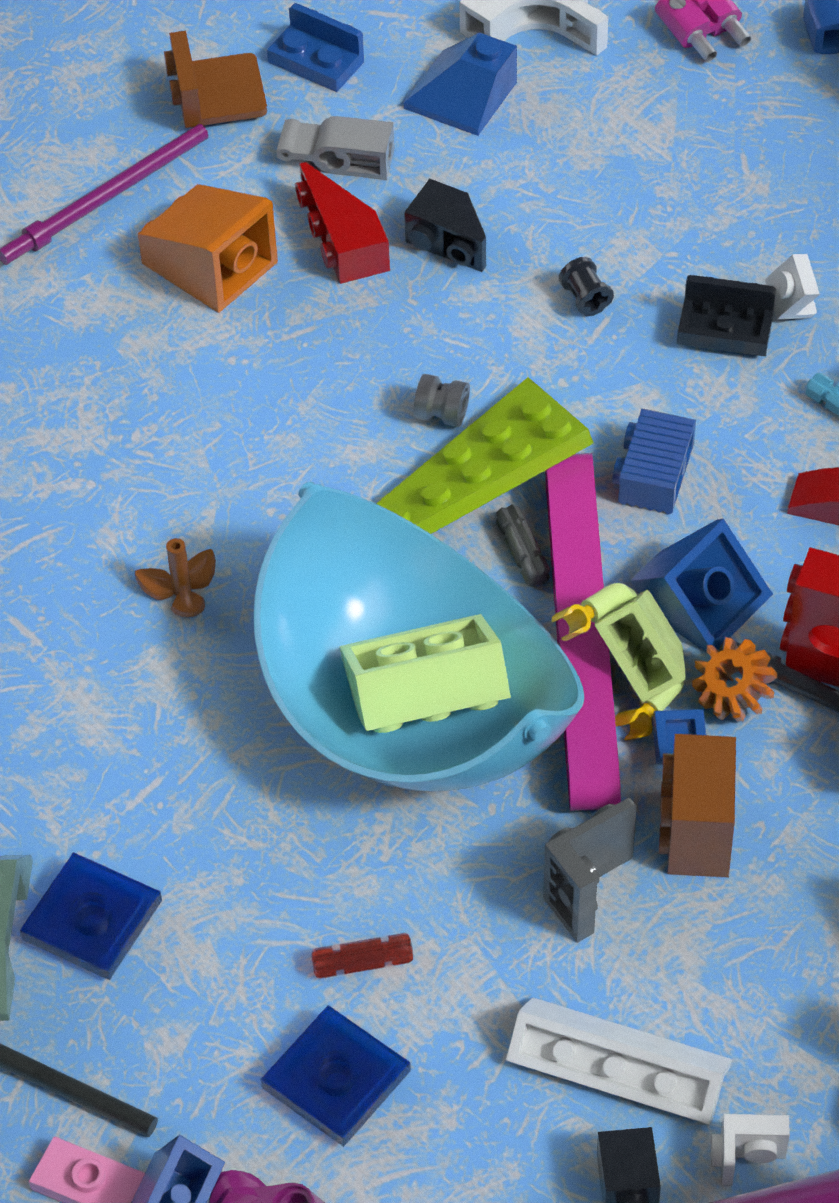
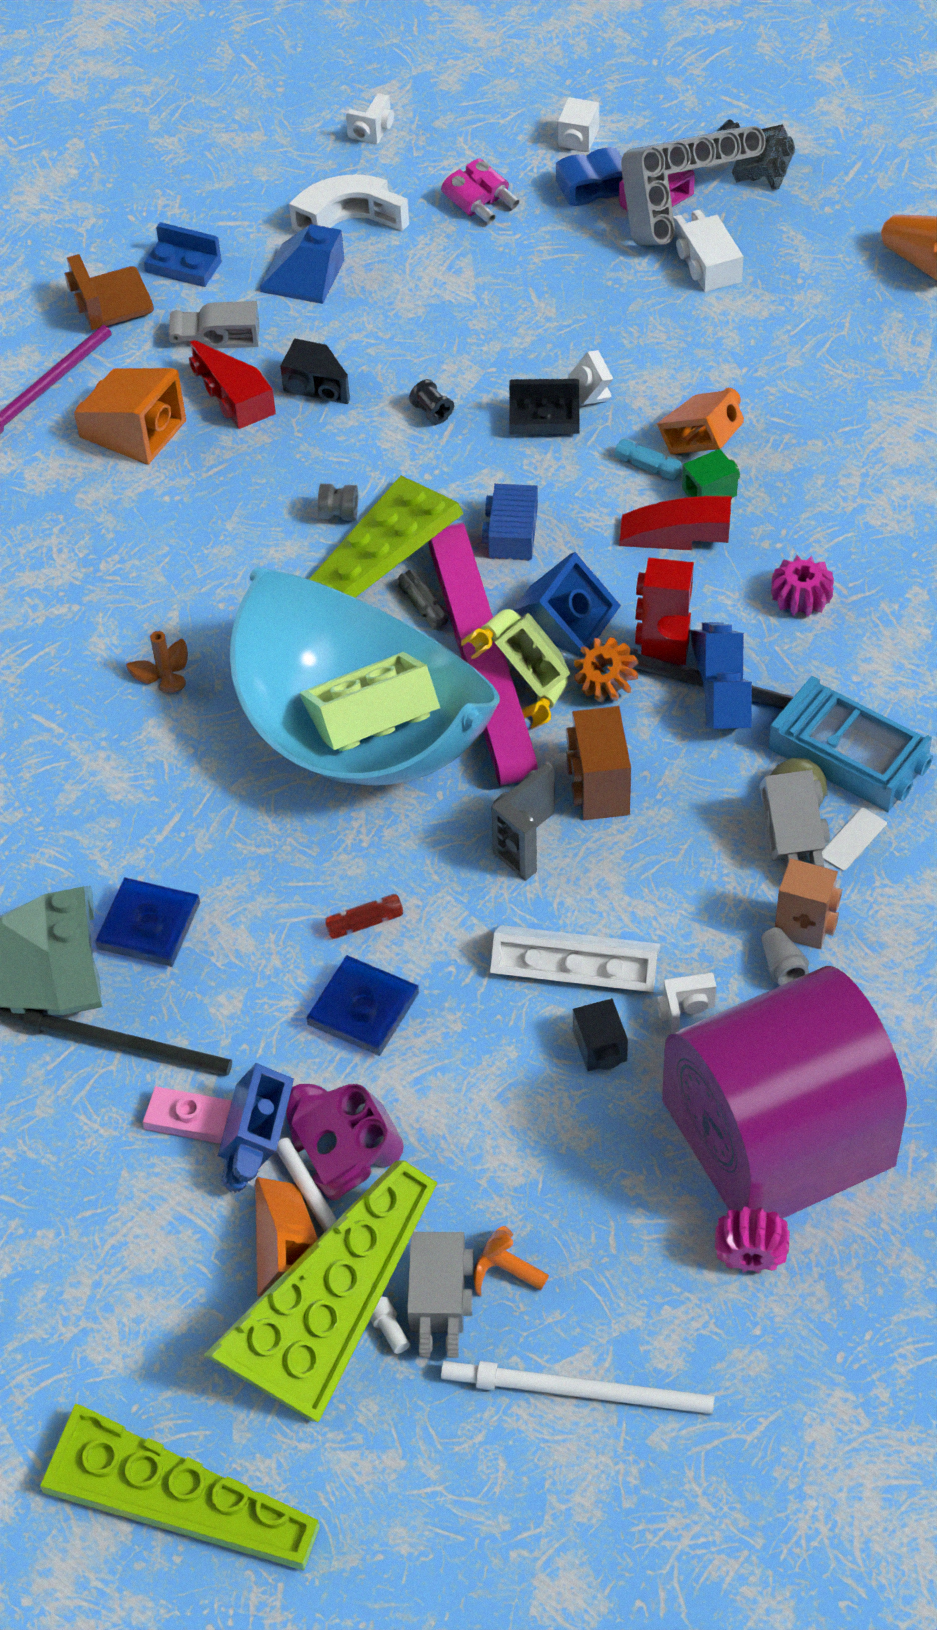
camera: 10 degrees left, 0 degrees up
(671, 722) = (561, 713): blue plate -> none

